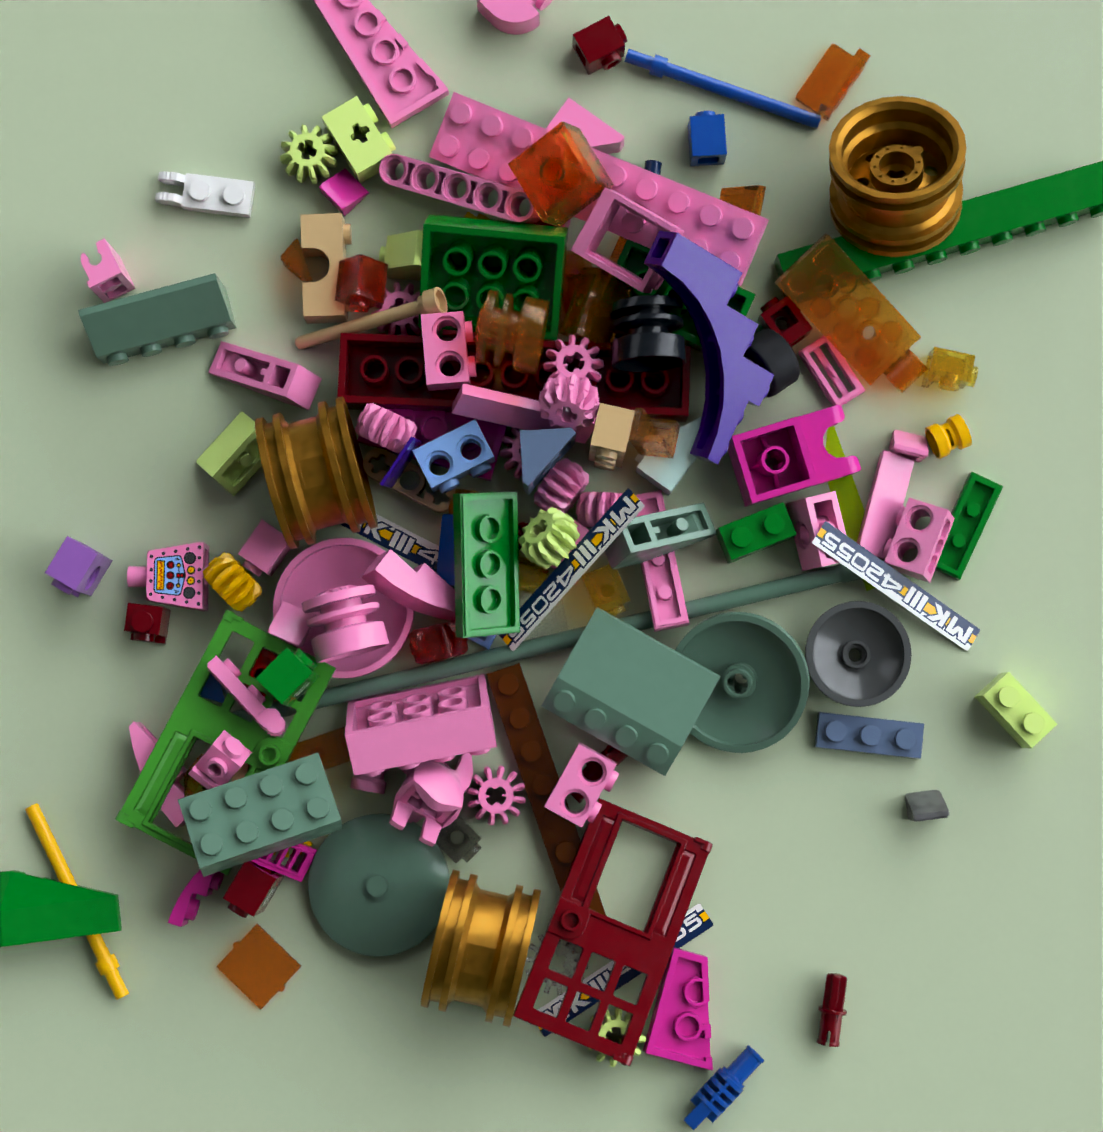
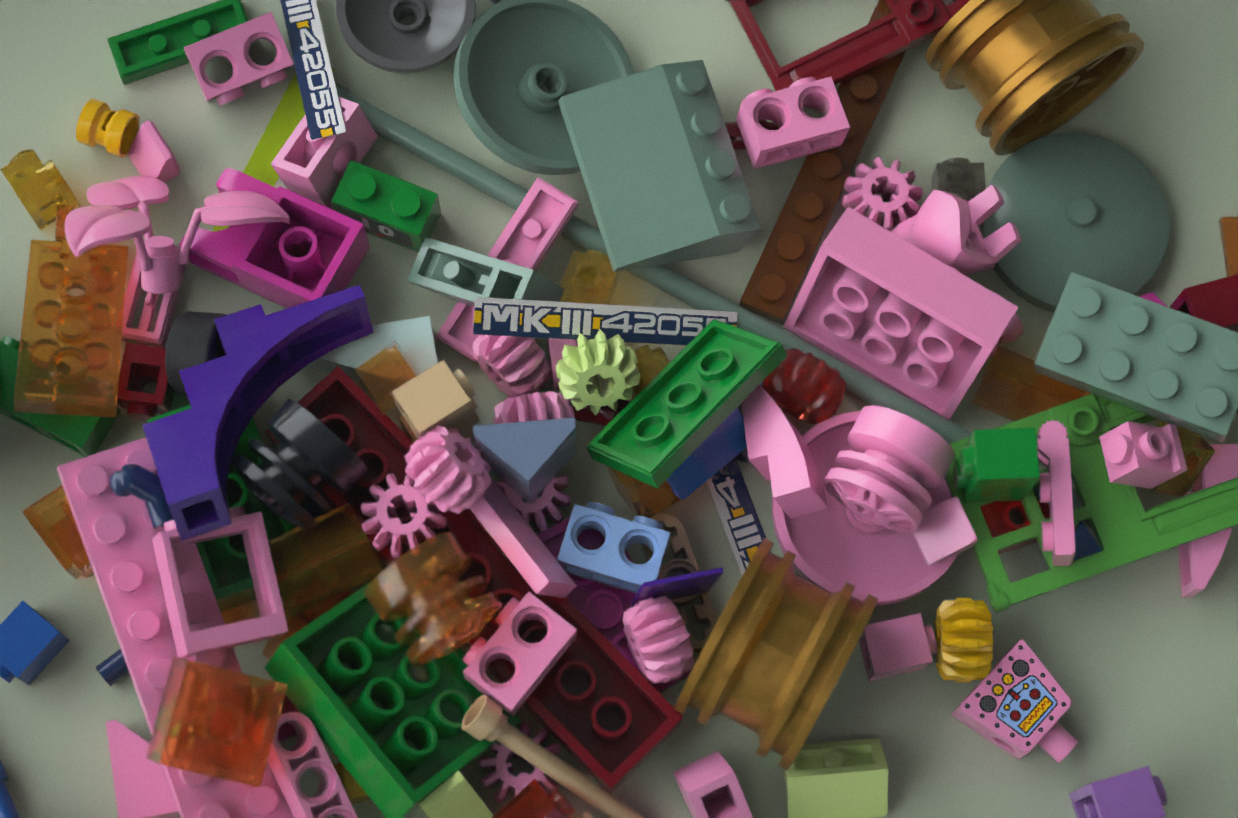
camera: 140 degrees left, 10 degrees down
(147, 623) = (1091, 684): dark red brick -> none
(718, 245) = (145, 486): none -> dark blue arm
(868, 356) = (159, 257): none -> bright pink plant
(884, 501) = (236, 127): bright pink slope -> none

